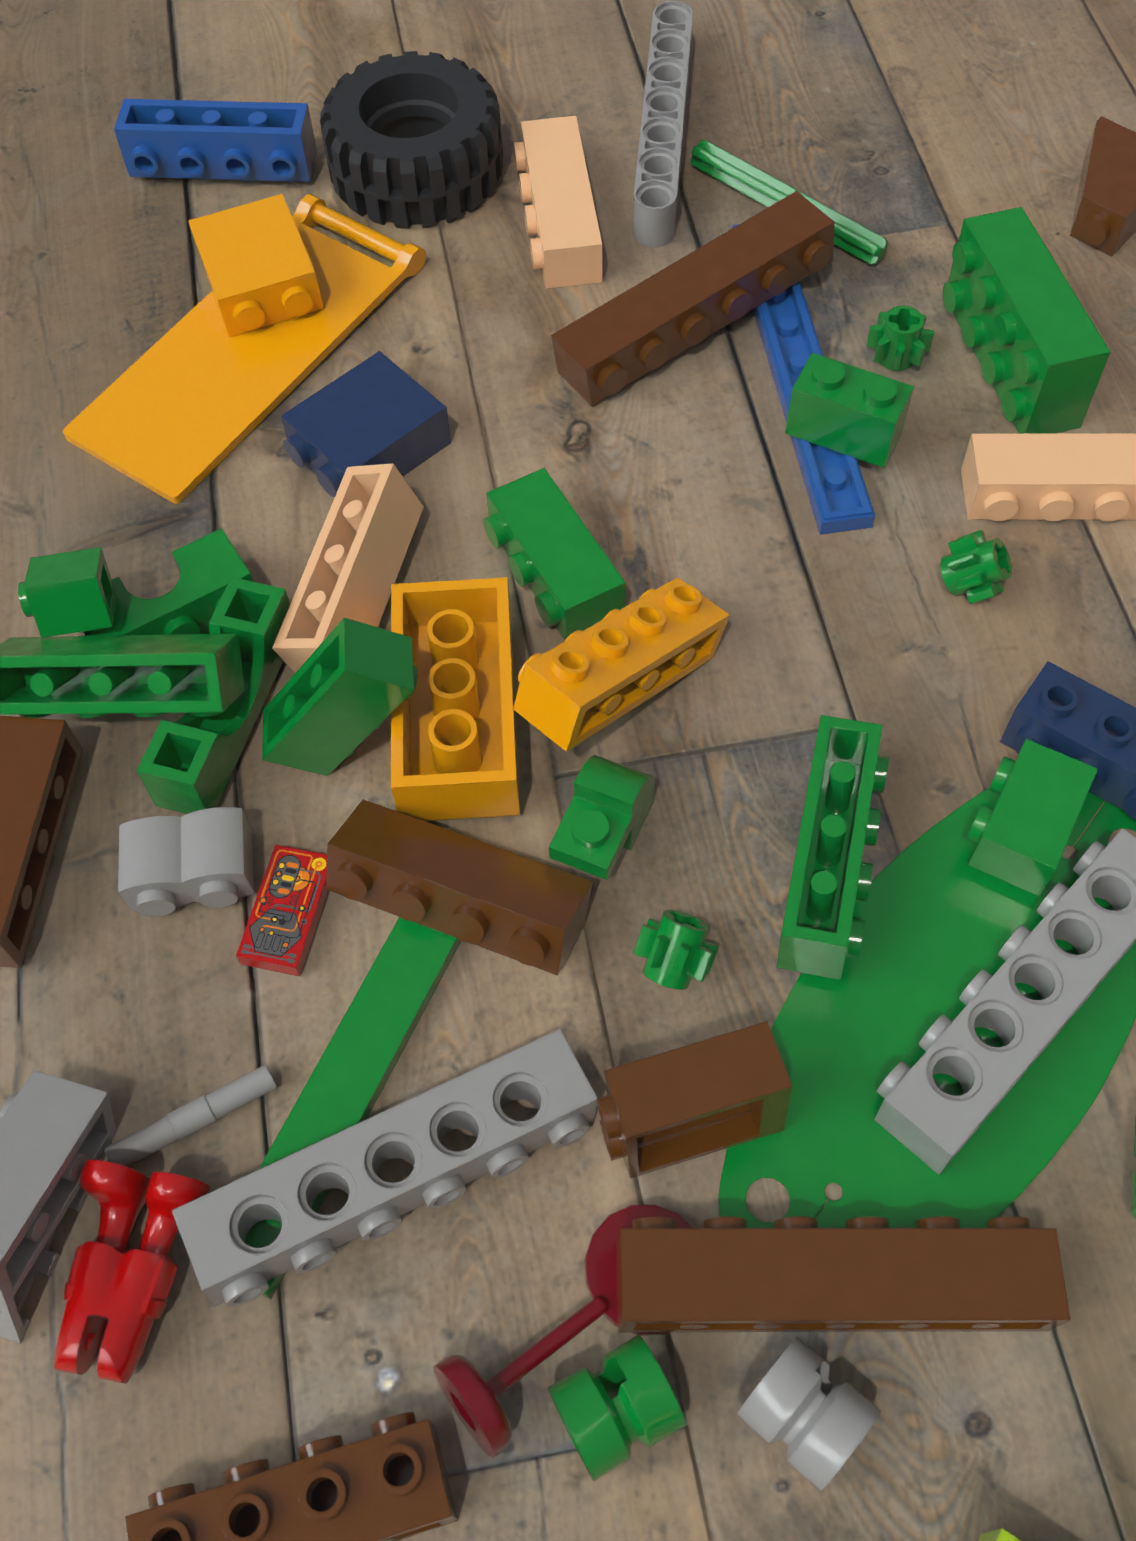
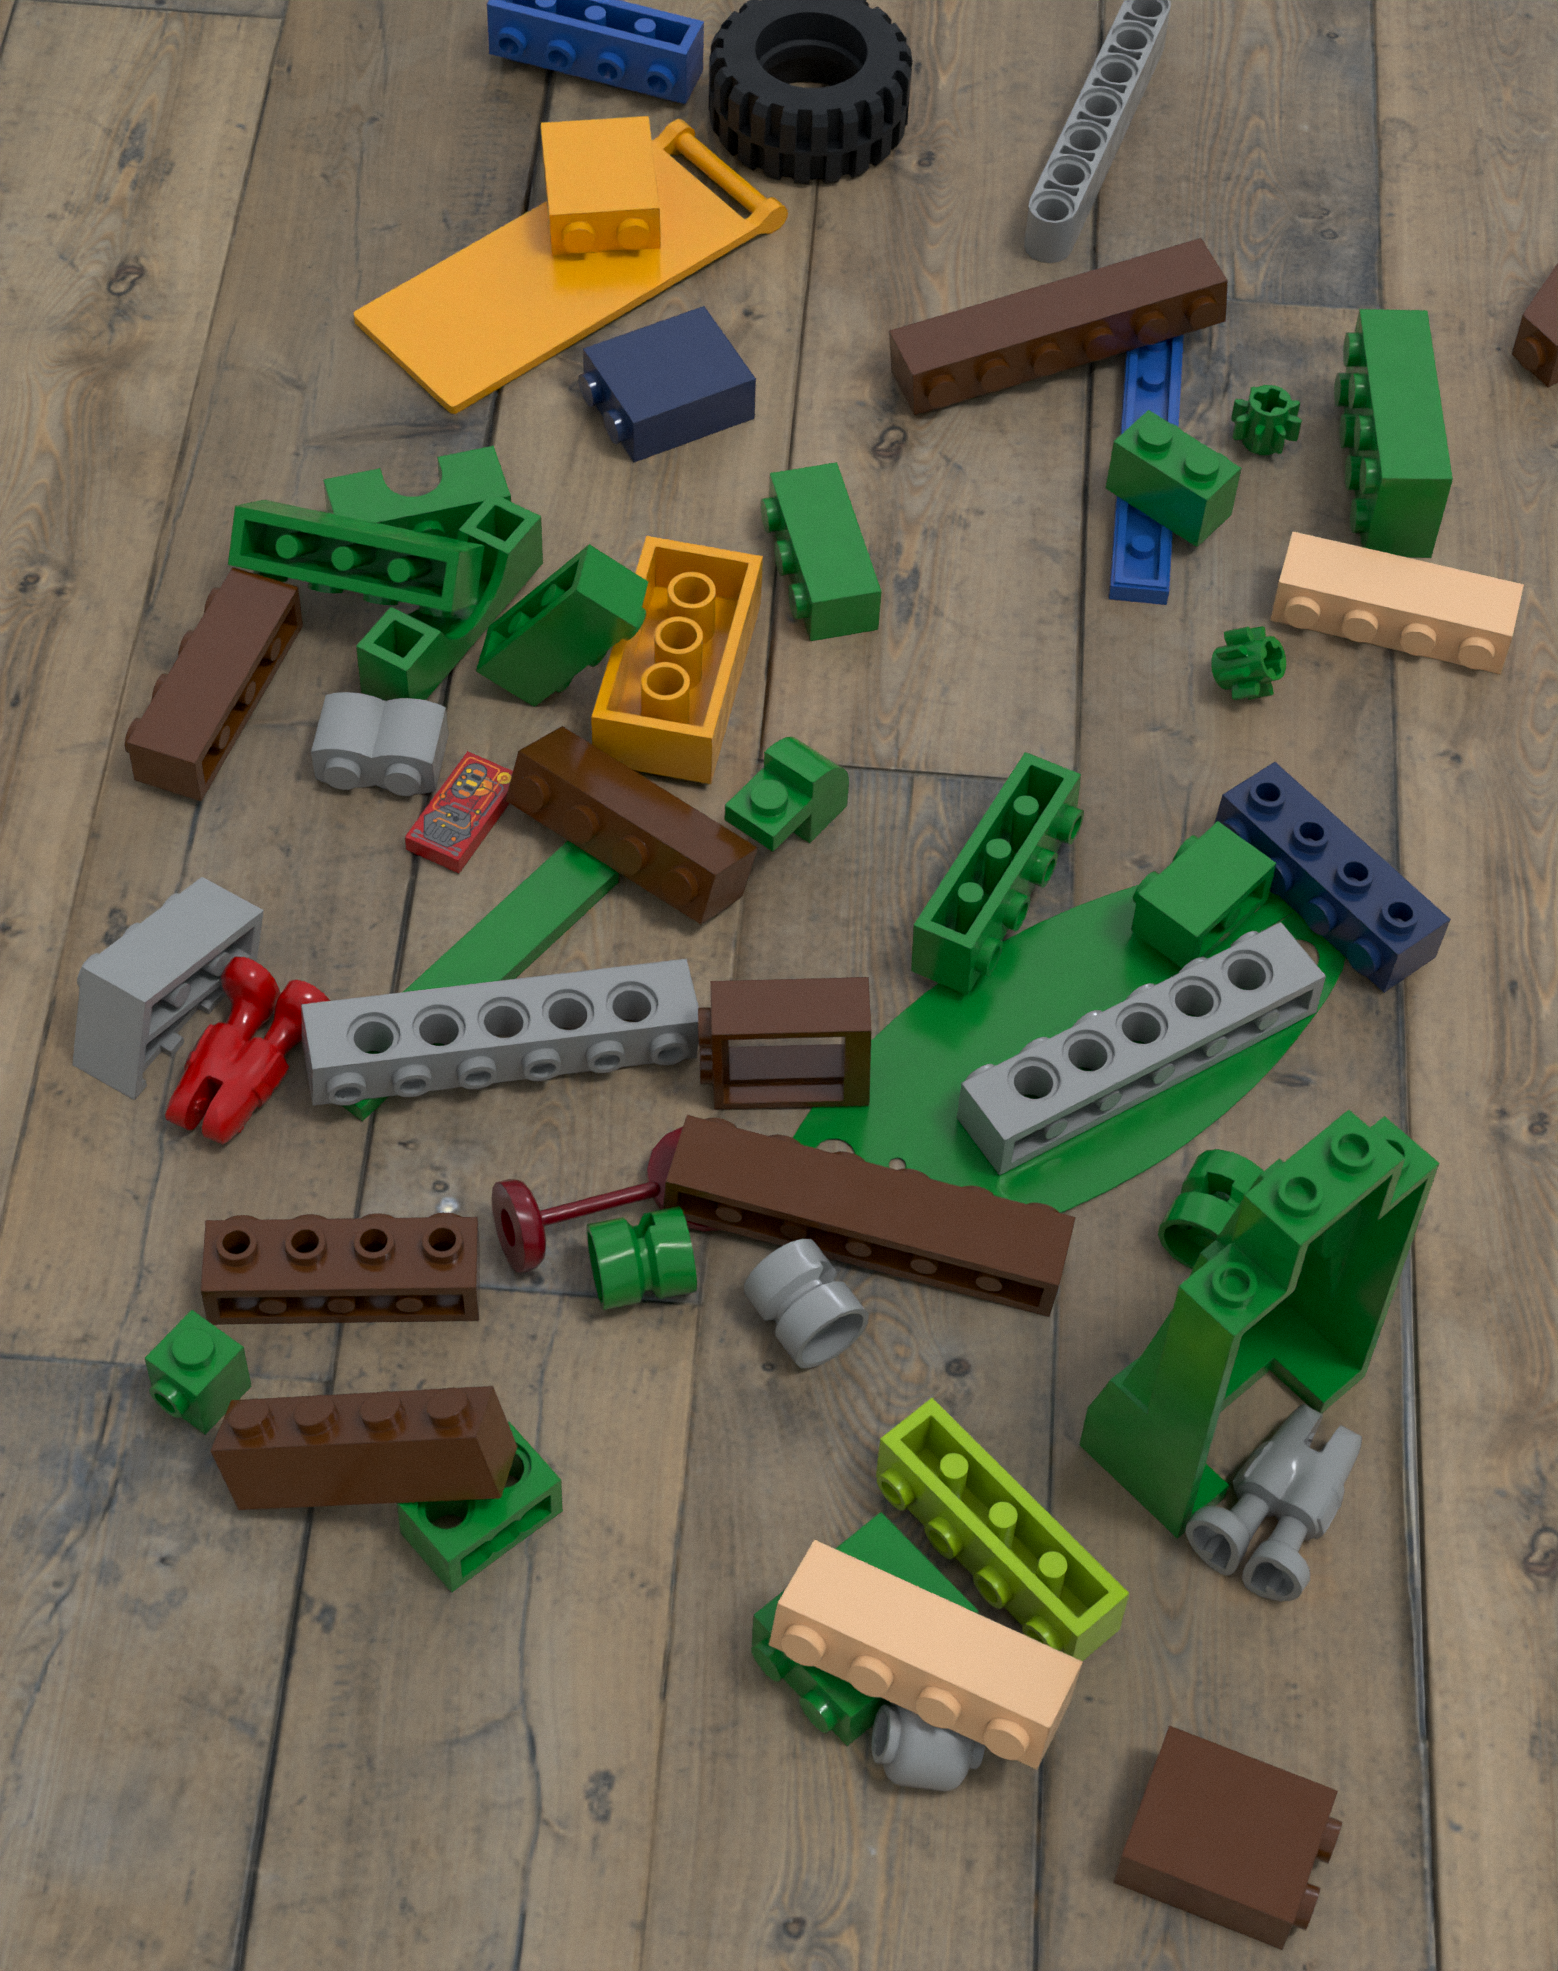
camera: 10 degrees right, 5 degrees down
(68, 592) = (331, 469): green brick -> none
(191, 1117) = (339, 958): light grey piece -> none
(352, 559) = (620, 500): light nougat brick -> none
(561, 202) = (950, 189): light nougat brick -> none
(618, 662) = (851, 661): light orange brick -> none
(675, 949) = (818, 927): green gear -> none
(768, 190) = (1187, 225): axle -> none

